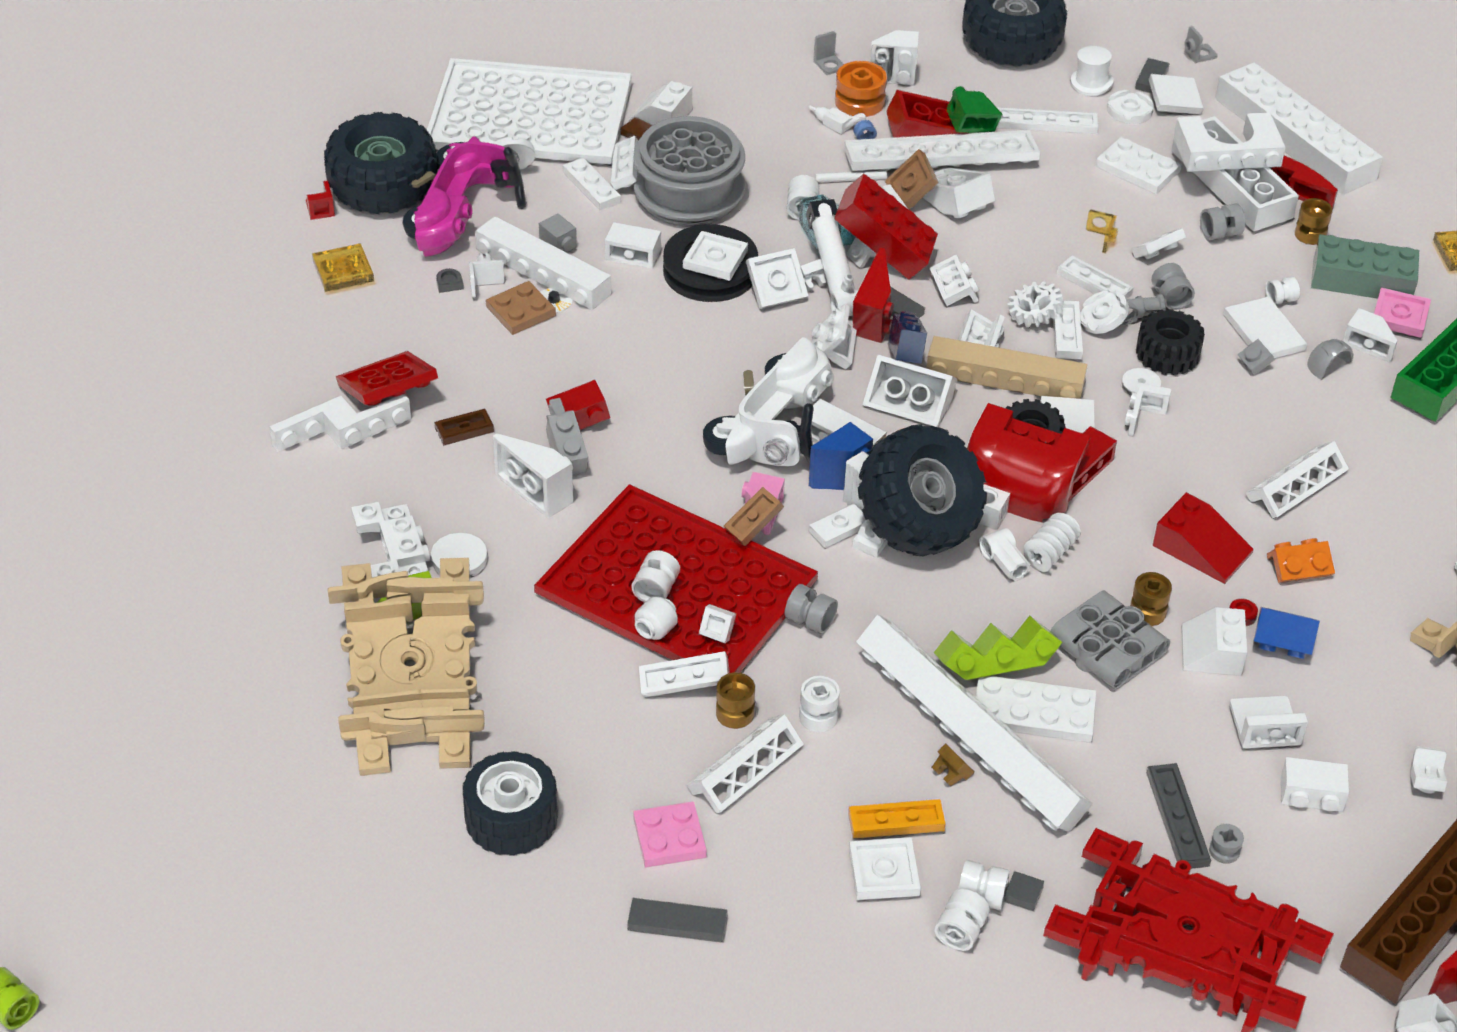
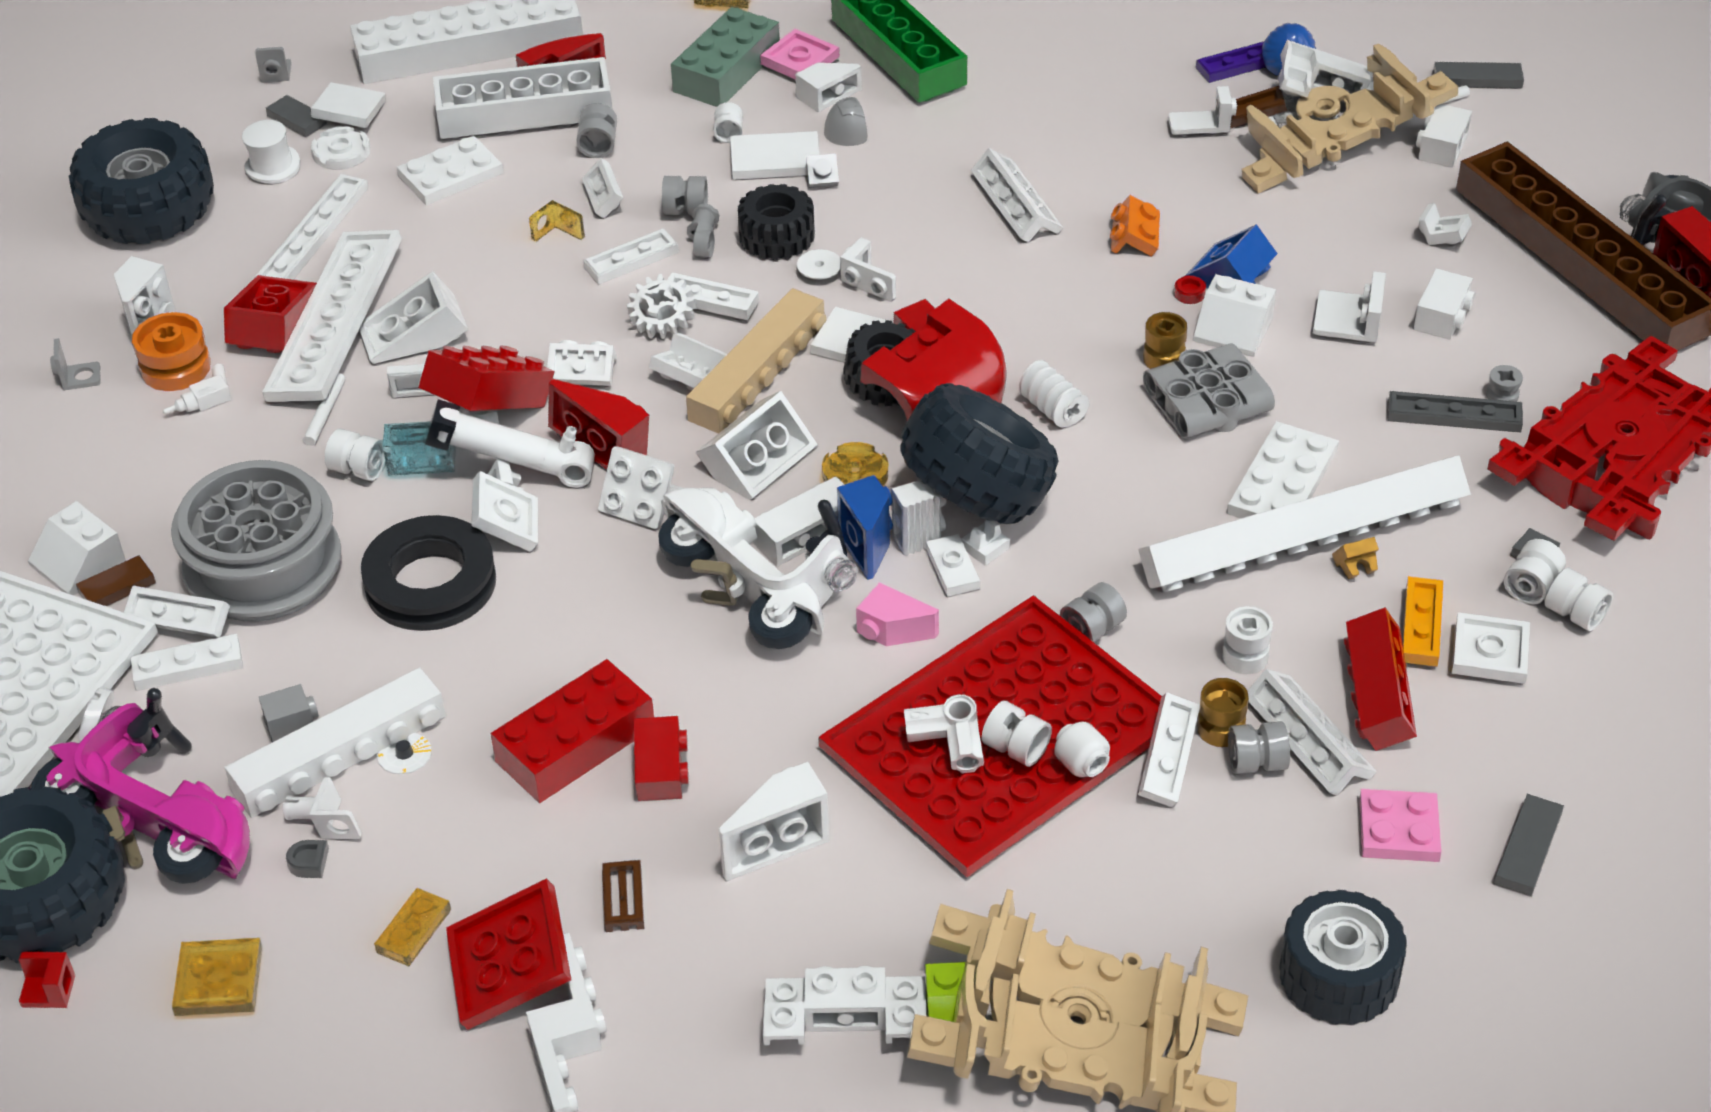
camera: 70 degrees left, 0 degrees up
(409, 339) = (412, 927): none -> clear yellow plate
(460, 546) = (874, 940): white tile -> none
(520, 307) = (409, 788): medium nougat plate -> none
(565, 436) = (718, 775): light grey hinge -> none
(579, 356) = (571, 730): none -> red brick
(633, 245) = (352, 640): white brick -> none
(654, 538) = (953, 720): none -> white piece
(708, 728) = (1259, 747): none -> light grey wheel
(715, 255) = (446, 551): white plate -> none
(717, 623) = (1107, 694): white tile -> none
(753, 516) = (941, 621): medium nougat plate -> none
(810, 792) = (1379, 680): none -> red brick
(862, 126) = (253, 371): medium blue bush -> none
(907, 337) = (692, 414): dark blue brick -> none
(913, 179) = (386, 343): medium nougat plate -> none
(972, 111) = (290, 262): green torso -> none
(997, 652) = (1209, 471): lime brick -> none
(1003, 549) = (1063, 434): white piece -> none
(1104, 312) = (701, 255): white tile -> none
(1201, 538) = (1078, 287): red slope -> none
(1203, 153) = (507, 95): white arch -> none
(1313, 220) = (634, 67): pearl gold wheel -> none

